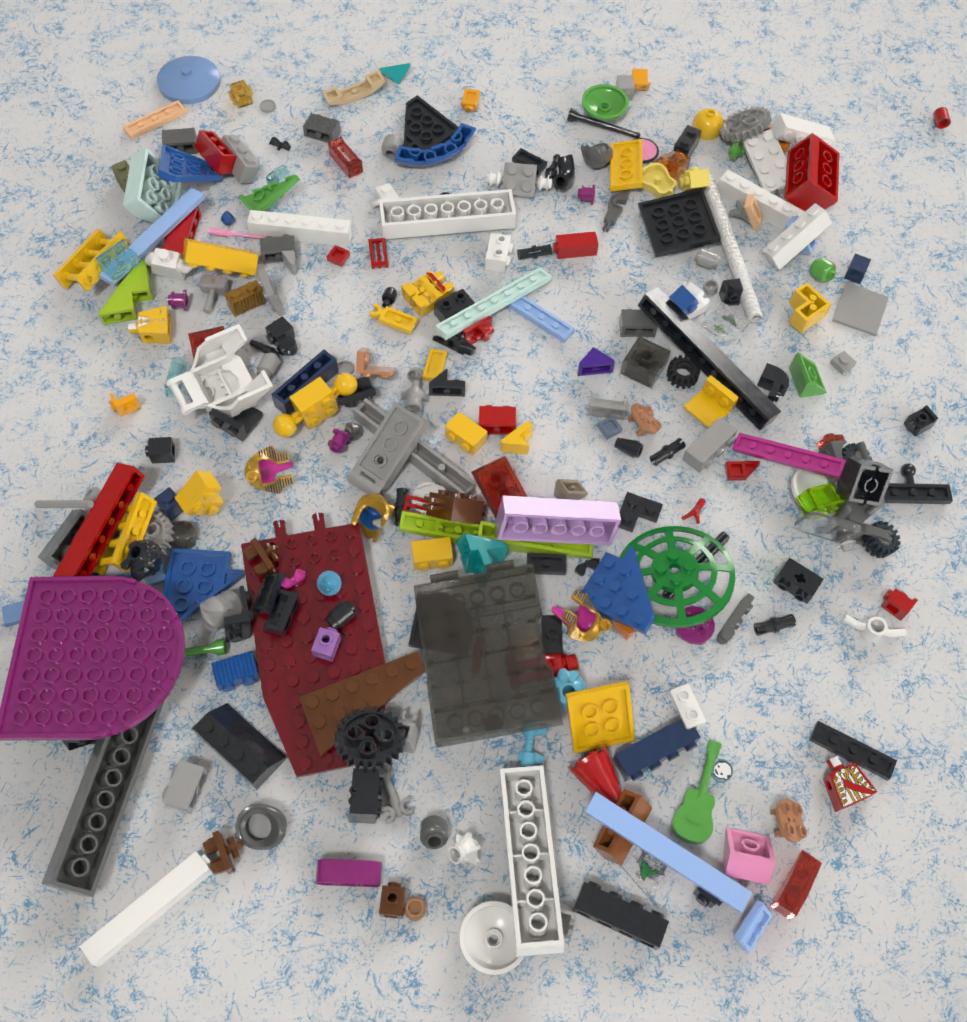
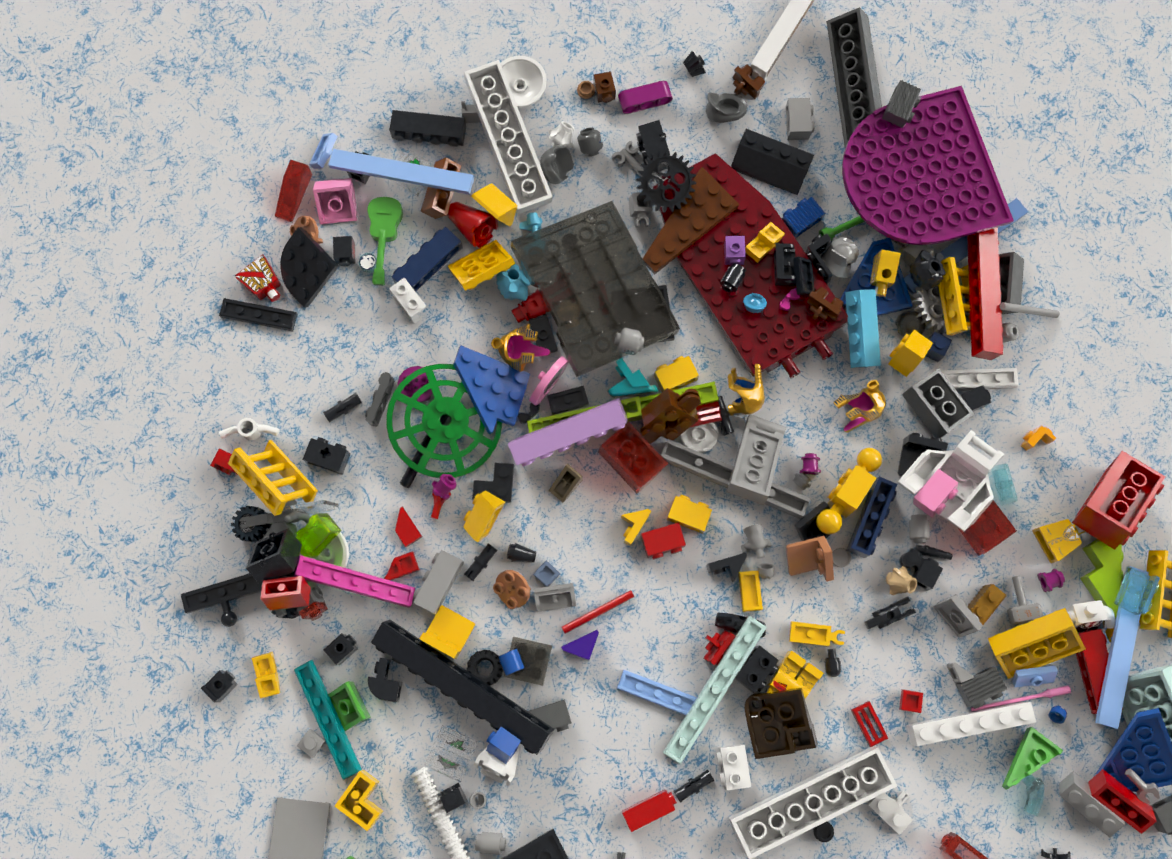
camera: 165 degrees right, 15 degrees up
(74, 725) = (902, 103): none -> dark grey brick
(88, 326) = (1119, 500): none -> red brick
(153, 471) = (977, 377): none -> white tile
(183, 580) = (884, 264): none -> yellow torso
(195, 154) = (1143, 788): none -> light grey bar
(196, 449) = (937, 404): none -> dark grey slope
(232, 242) = (1035, 676): none -> light blue plate
(232, 534) = (863, 328): none -> medium azure brick
(240, 375) = (935, 493): none -> bright pink brick
(274, 895) = (694, 64): none -> black piece
(290, 647) = (764, 242): none -> yellow slope
(305, 331) = (900, 581): none -> tan rock
(325, 314) = (880, 616): none -> black hinge
(452, 265) = (779, 723): none -> dark brown slope
(472, 575) = (629, 341): none -> light grey head
(485, 814) = (556, 164): none -> dark grey piece
(561, 574) = (548, 380): none -> bright pink piece
(568, 779) = (496, 203): none -> yellow slope
(572, 387) = (597, 612): none -> red bar
(657, 478) = (483, 515): none -> yellow slope
(661, 354) = (511, 662): none -> blue brick
(688, 517) = (444, 486): none -> magenta brick
(730, 498) = (406, 528): none -> red tile
(747, 790) = (344, 250): none -> black brick
(795, 778) = (305, 267): none -> black plate
(808, 418) = (341, 648): none -> black brick
(827, 374) = (327, 719): none -> teal tile
(857, 447) = (285, 593): none -> red brick
(876, 563) = (262, 486): none -> yellow fence
(877, 420) = (266, 673): none -> yellow slope

